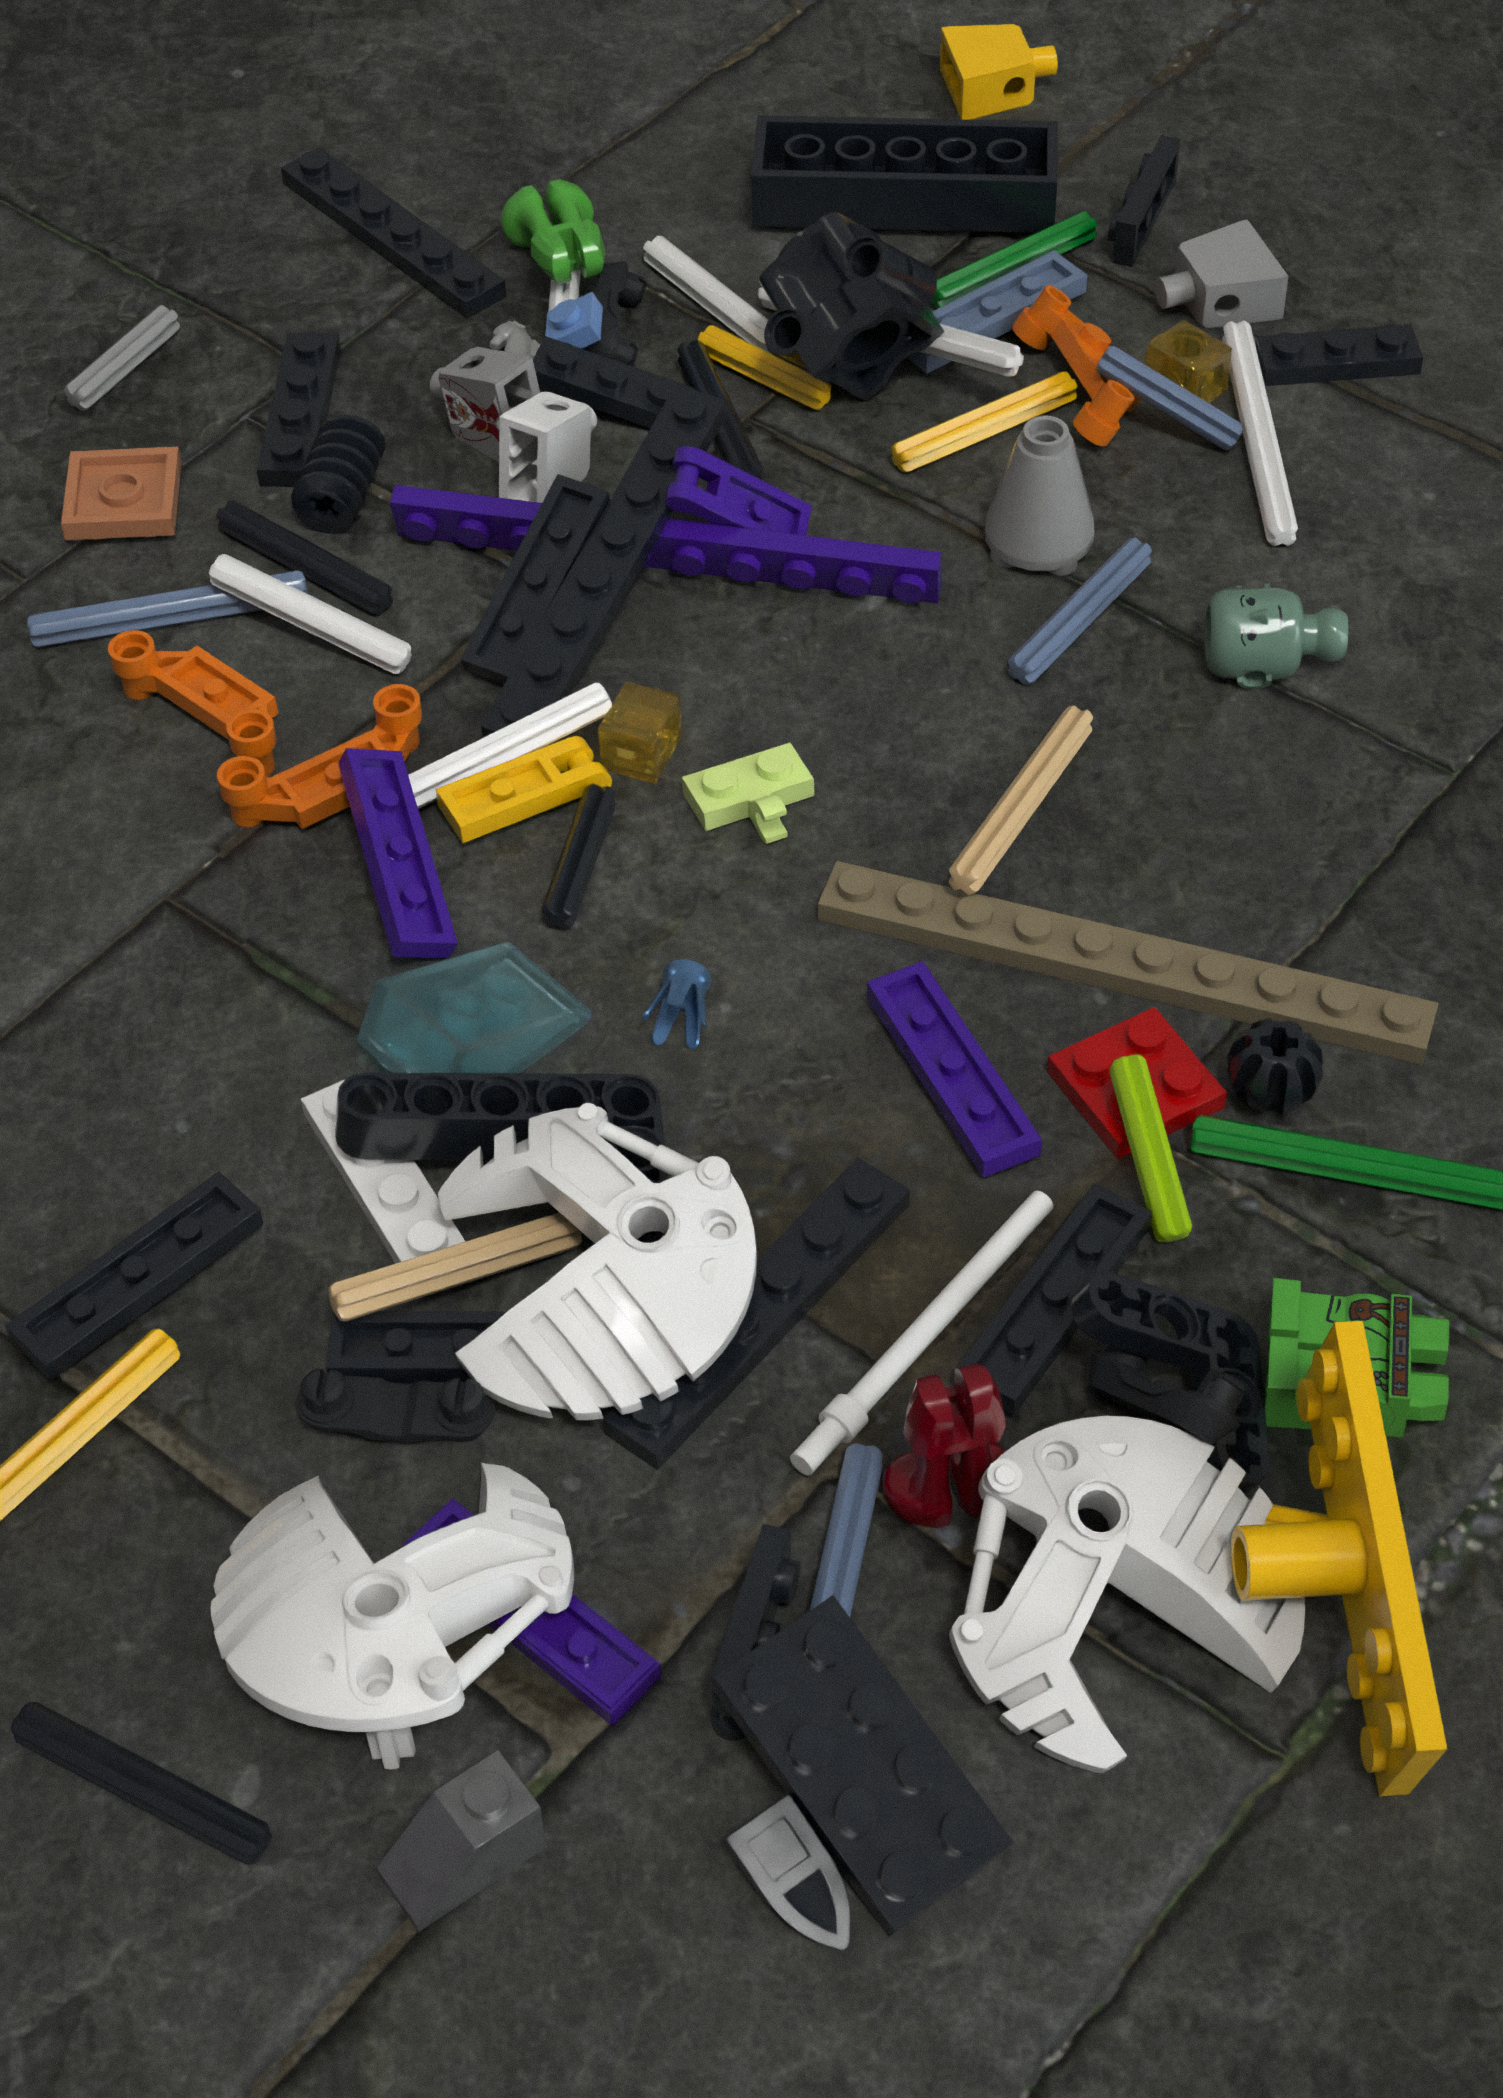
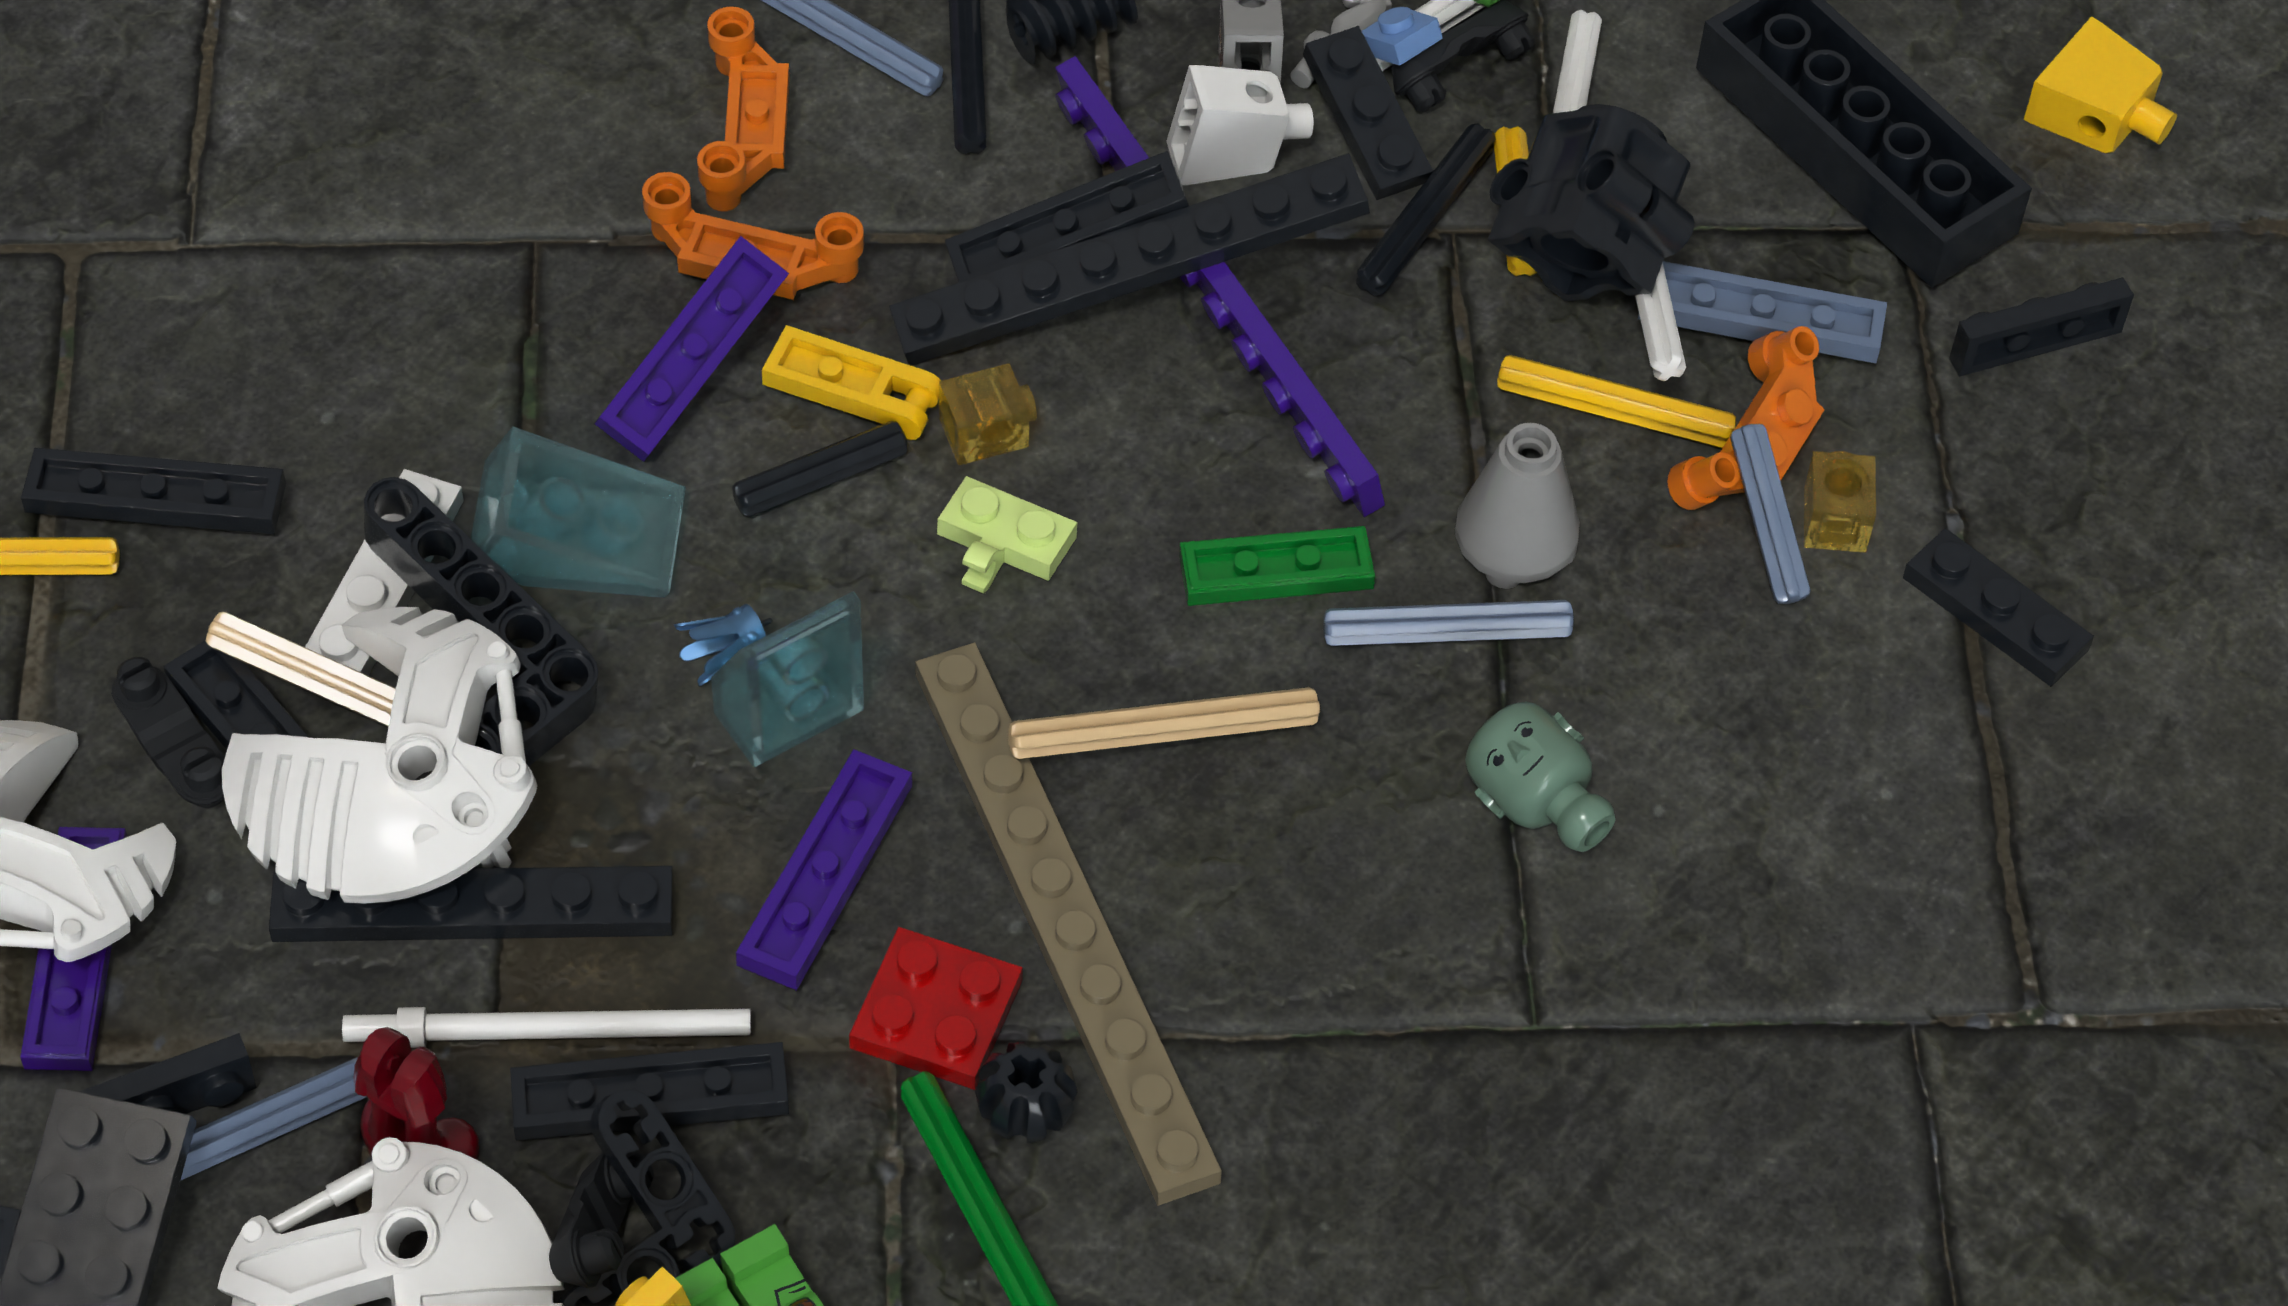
camera: 45 degrees right, 5 degrees up
(310, 614) = (895, 109): white axle -> none
(512, 741) = (876, 336): white axle -> none
(732, 495) = (1289, 297): dark purple plate -> none
(775, 967) = (793, 681): none -> clear light blue slope
(935, 668) = (1276, 565): none -> green tile
(1058, 237) = (1820, 273): green axle -> none
(1150, 1148) = (851, 1057): lime axle -> none
(1226, 278) = (1994, 452): light grey torso -> none
(1260, 435) = (1819, 610): white axle -> none

